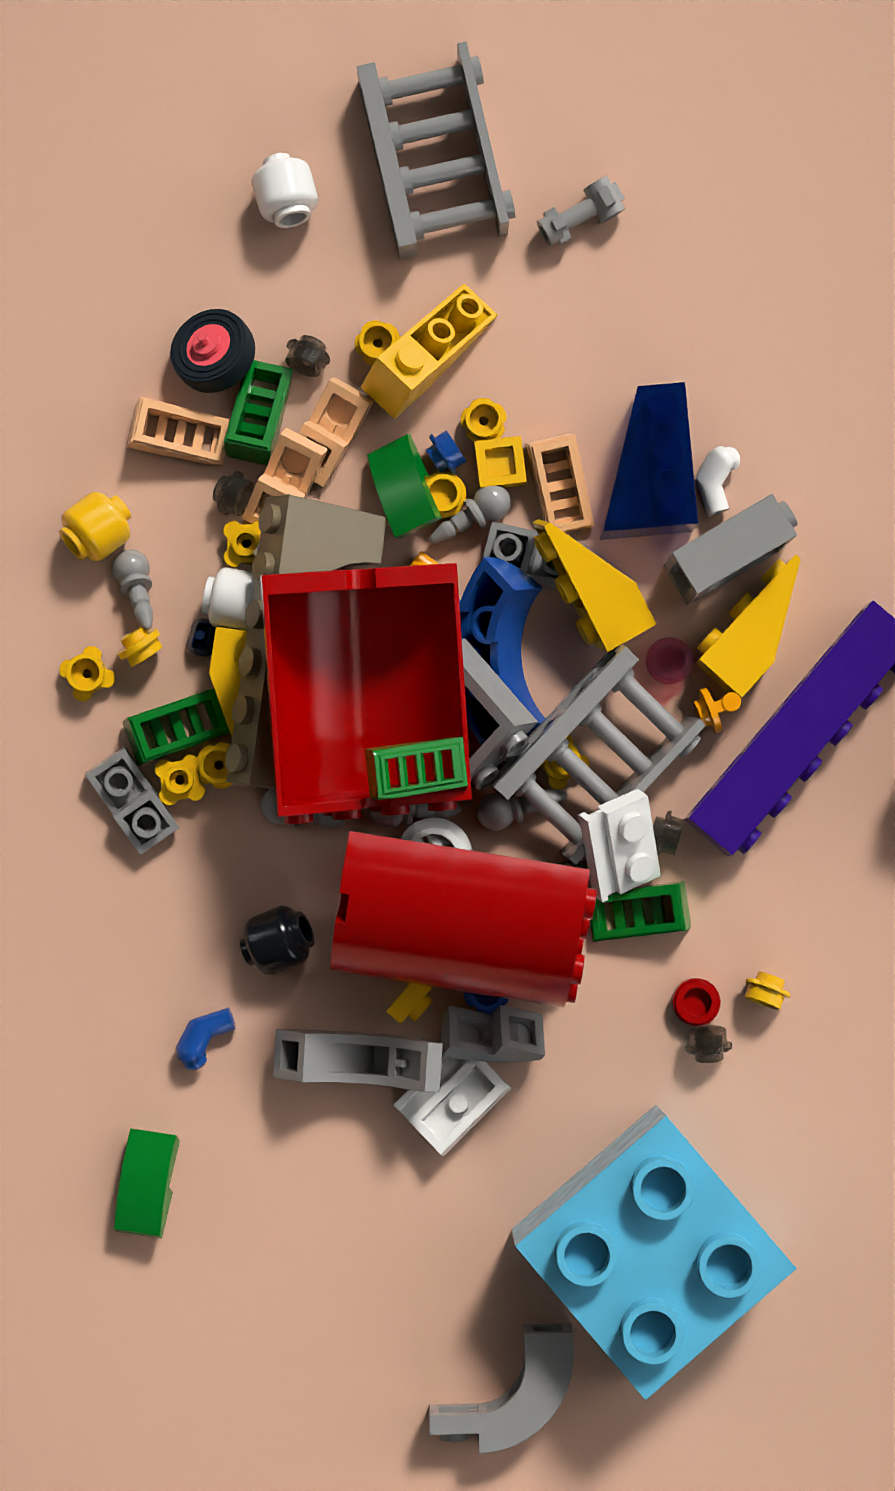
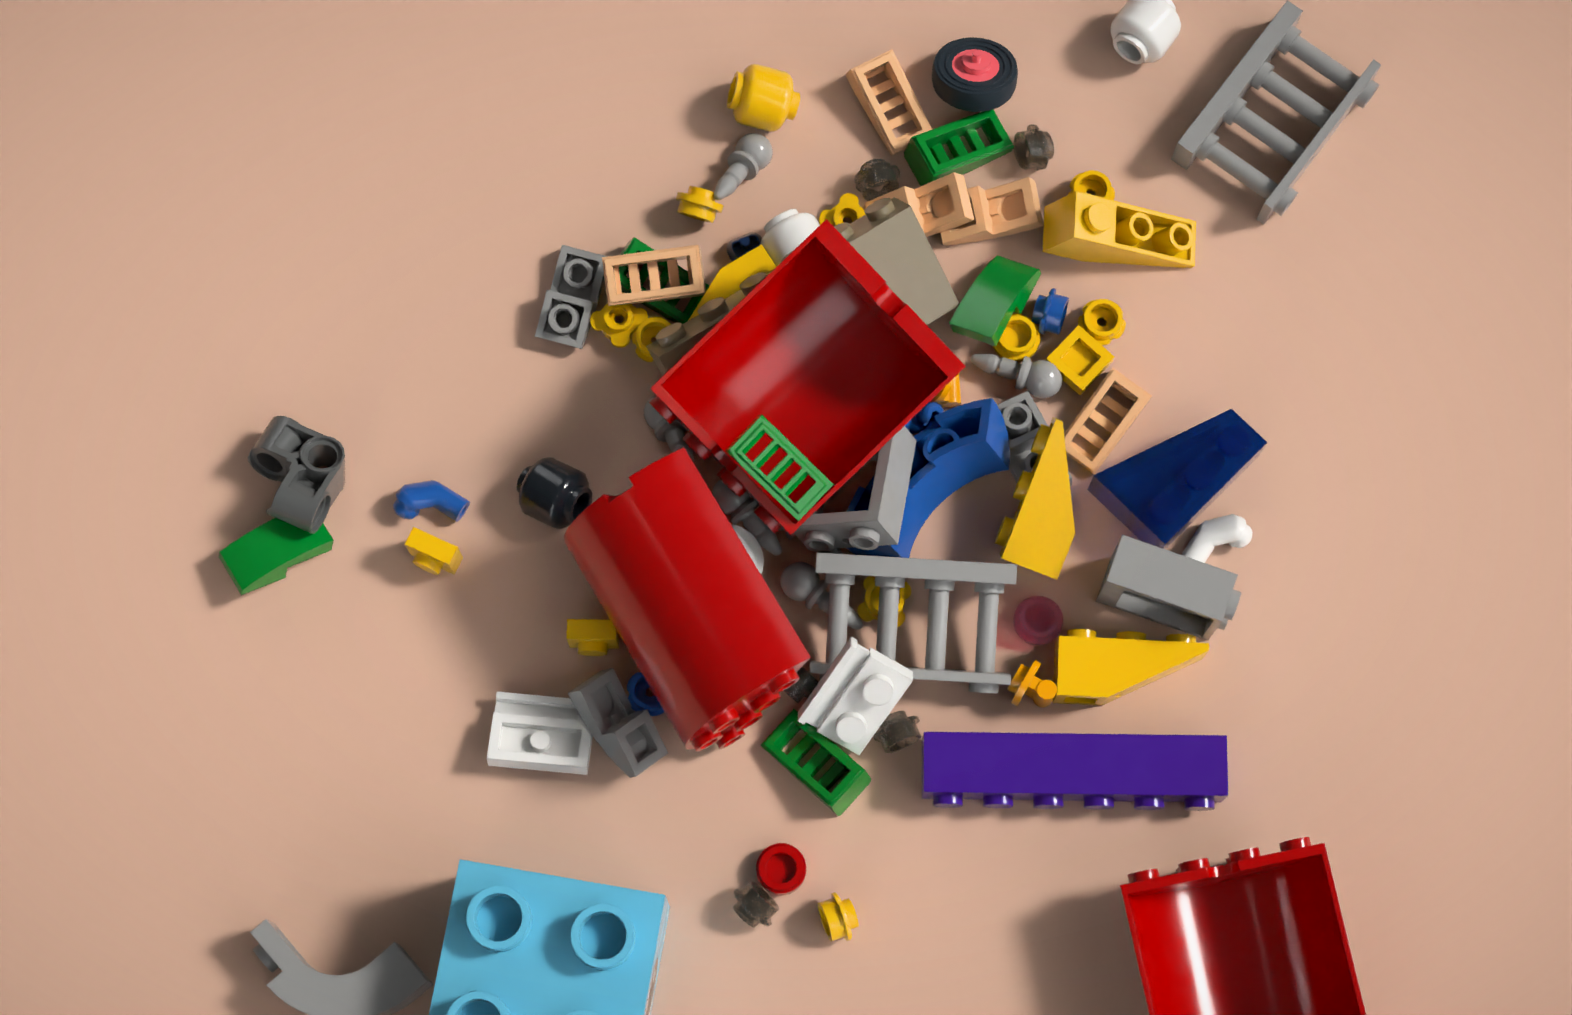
camera: 50 degrees right, 10 degrees down
(74, 669) = (639, 171): yellow plate -> none
(80, 1116) = (291, 455): none -> dark grey piece
(192, 692) = (675, 291): none -> light nougat slope
(248, 1069) = (432, 553): none -> yellow plate
(358, 1058) = (509, 627): light grey arch -> none
(602, 200) = (1355, 270): light grey bar -> none

